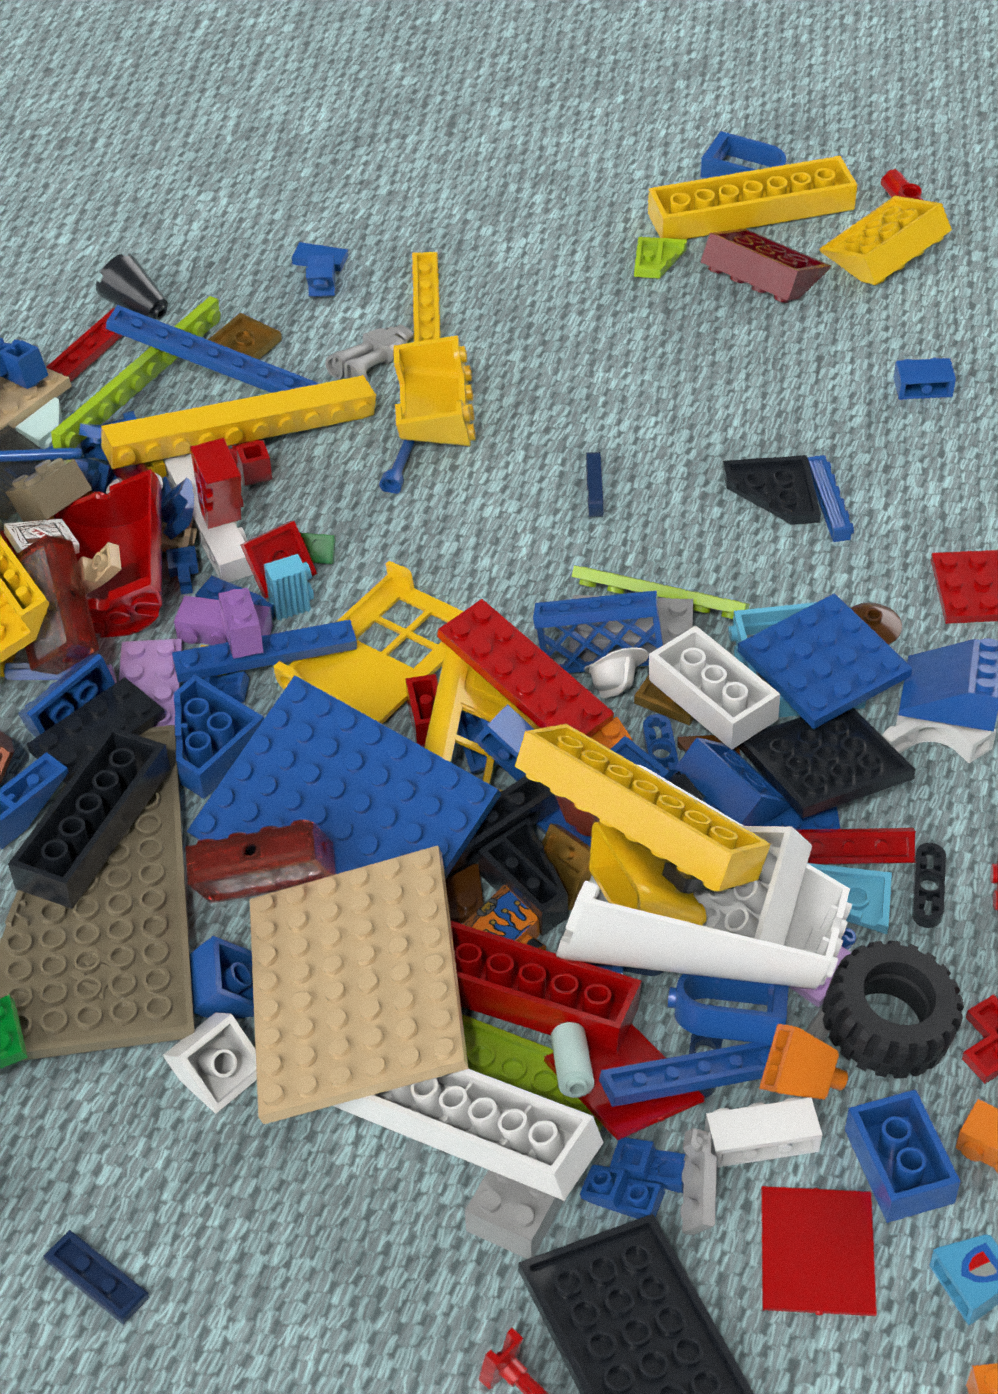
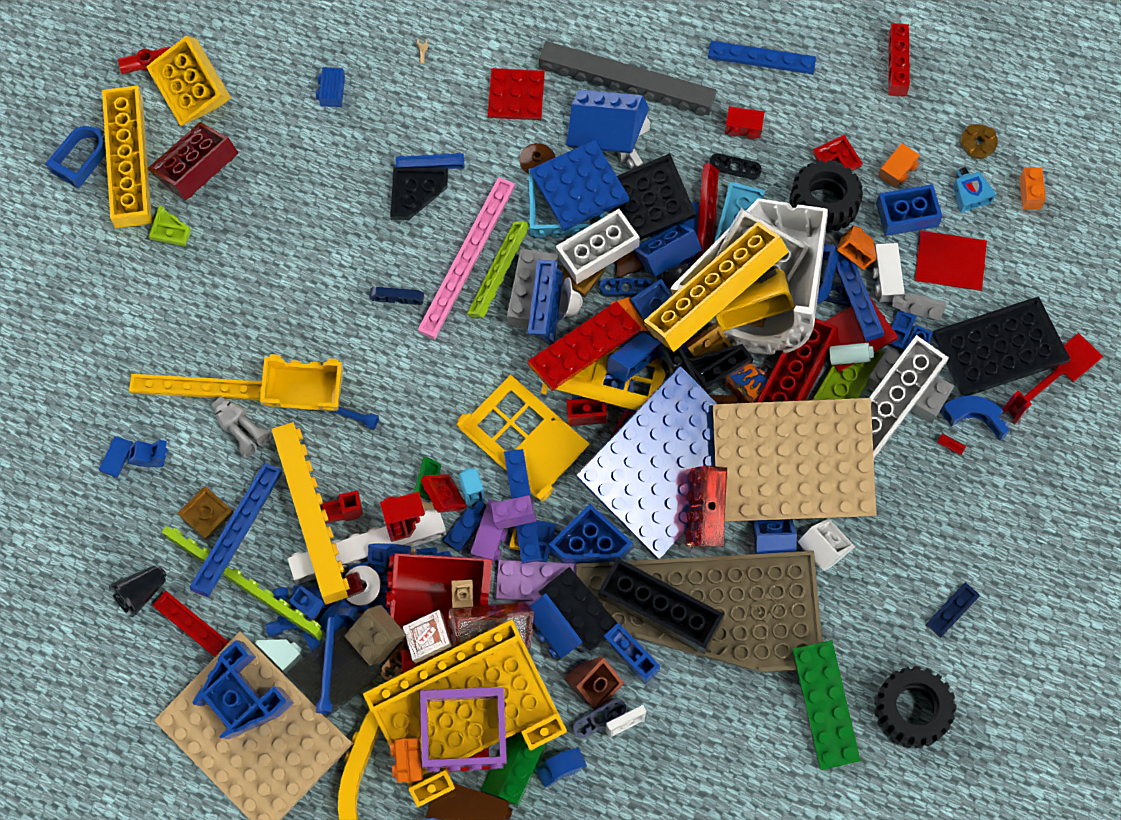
camera: 85 degrees left, 20 degrees up
(424, 1260) = (951, 444): none -> red piece
(496, 1270) = (979, 408): none -> blue arch
(677, 555) = (466, 258): none -> bright pink plate

